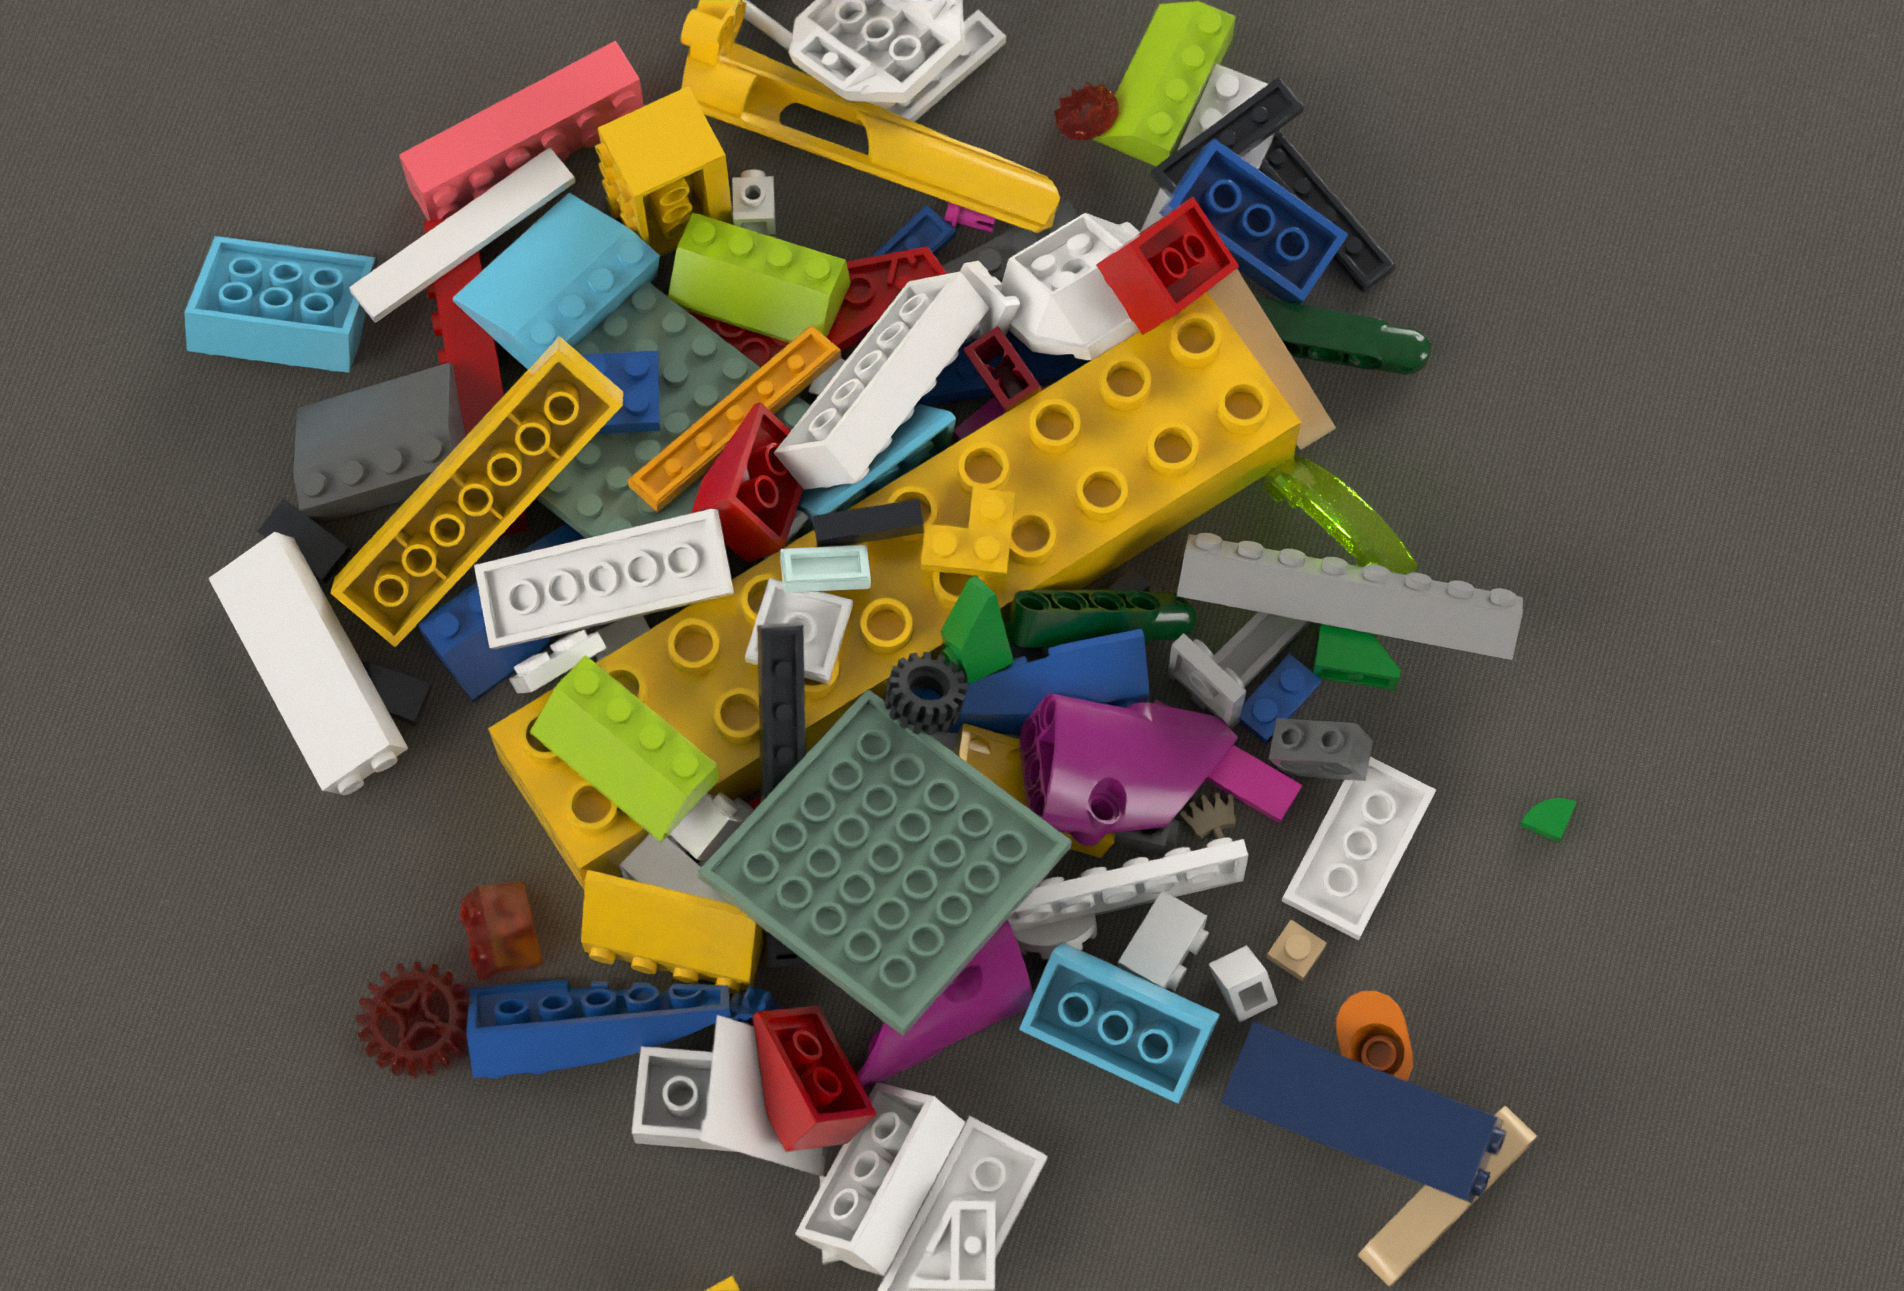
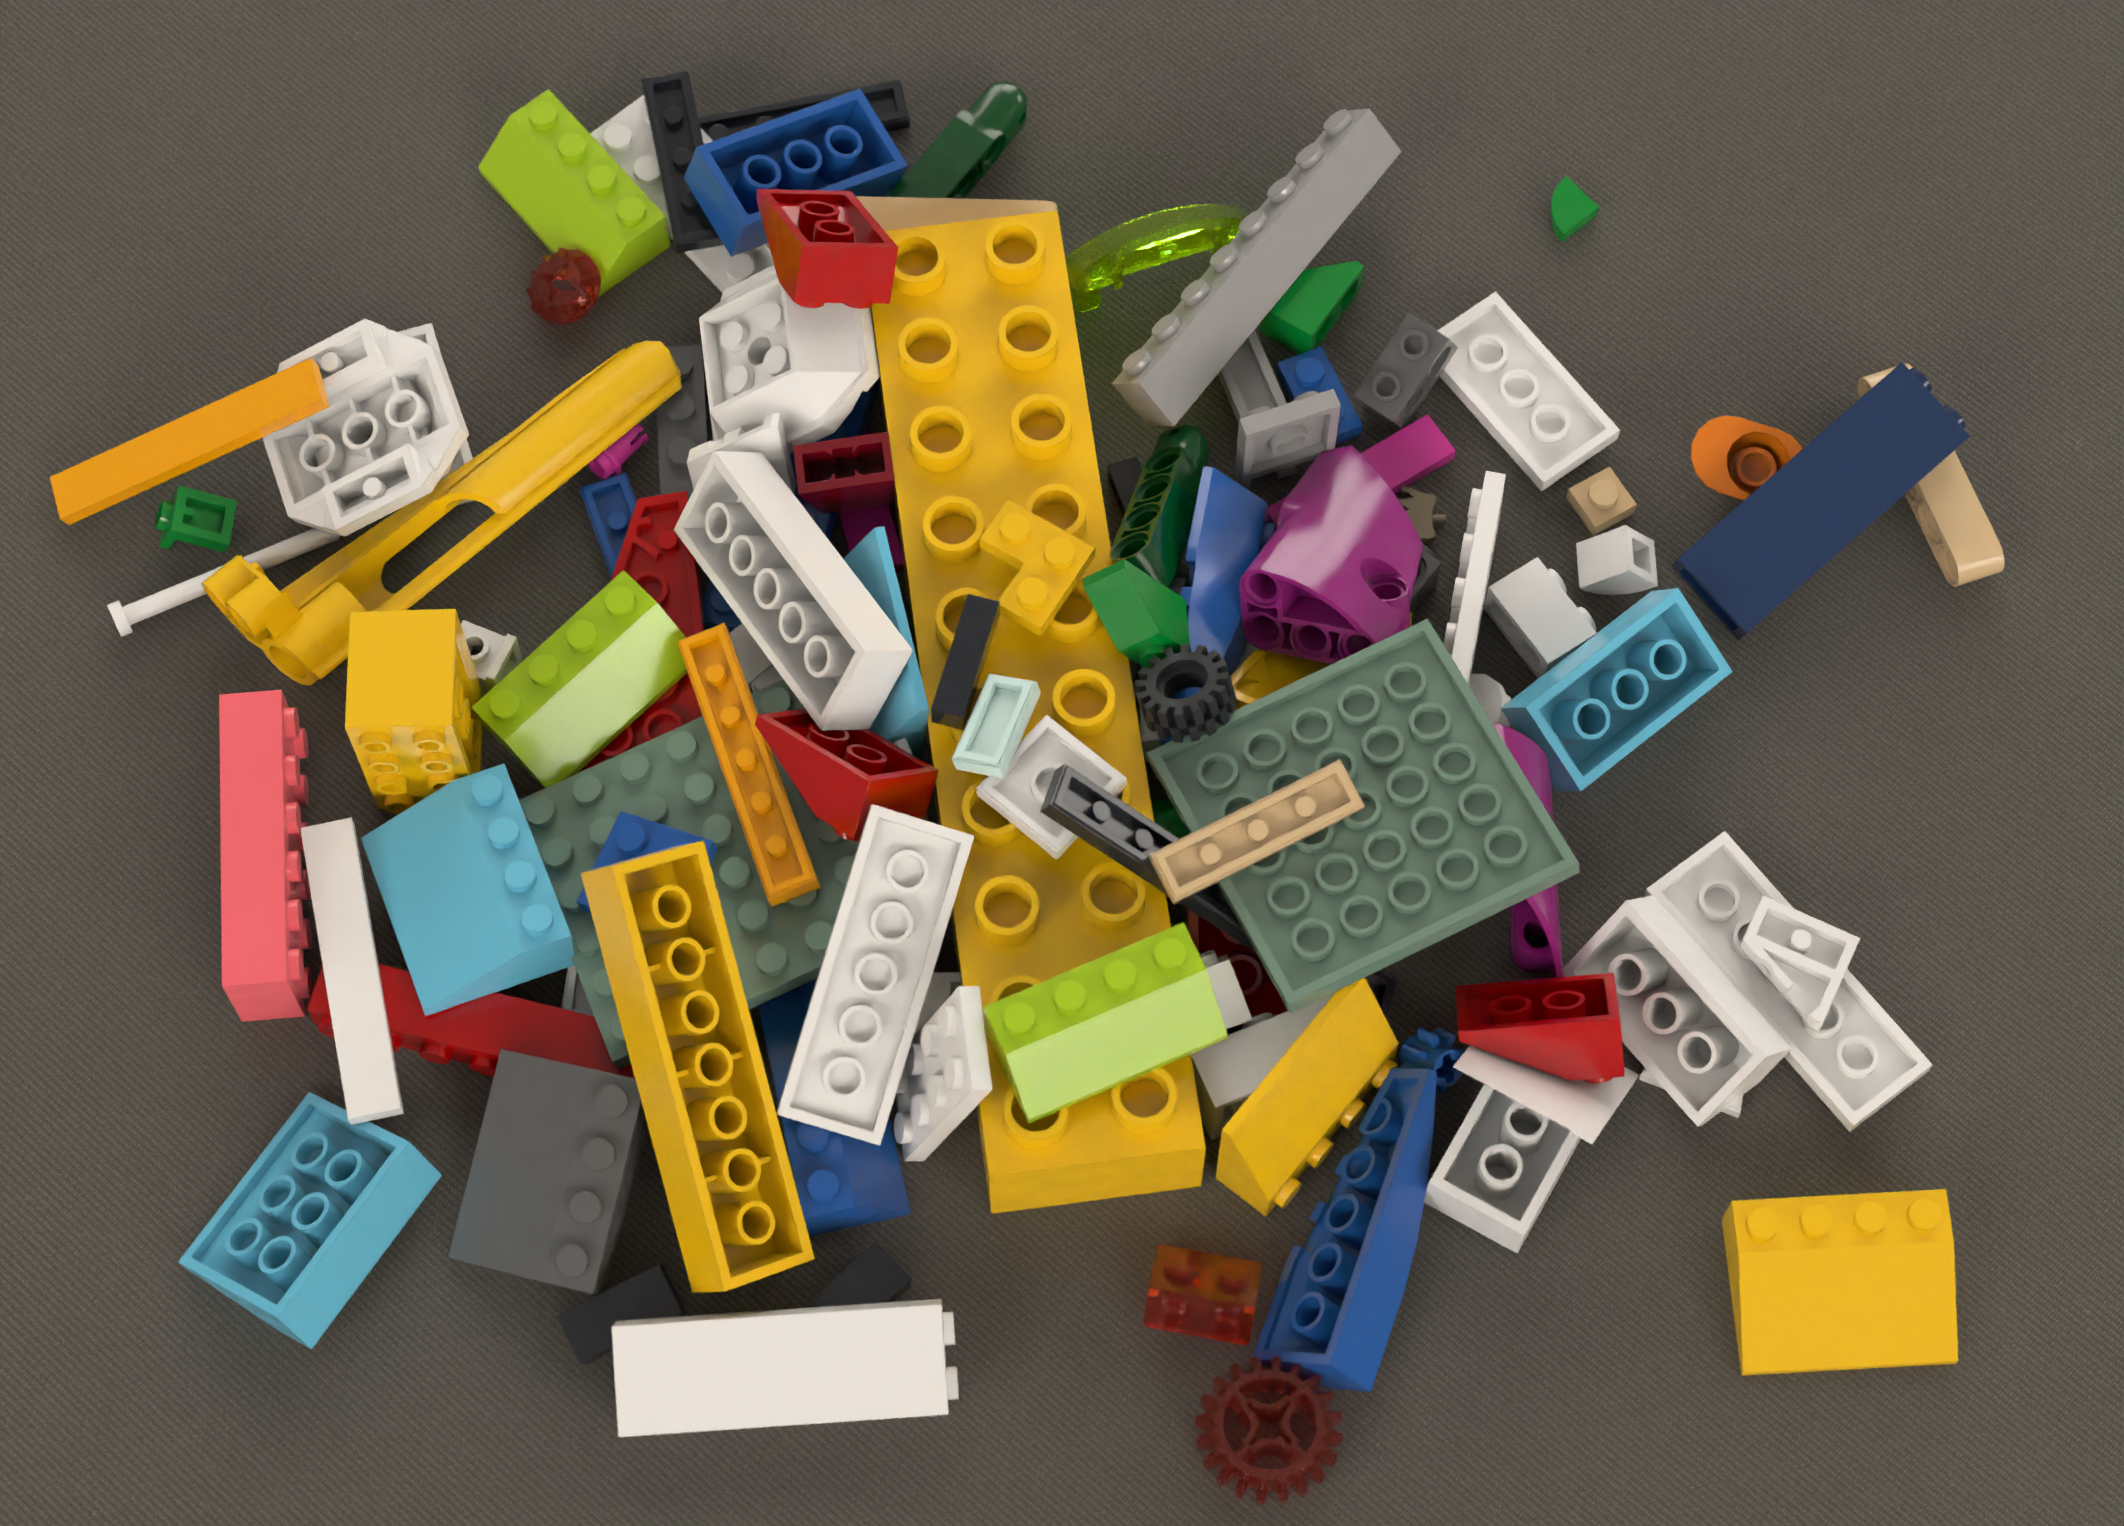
camera: 65 degrees left, 5 degrees down
(826, 789) = (1256, 831): none -> tan tile

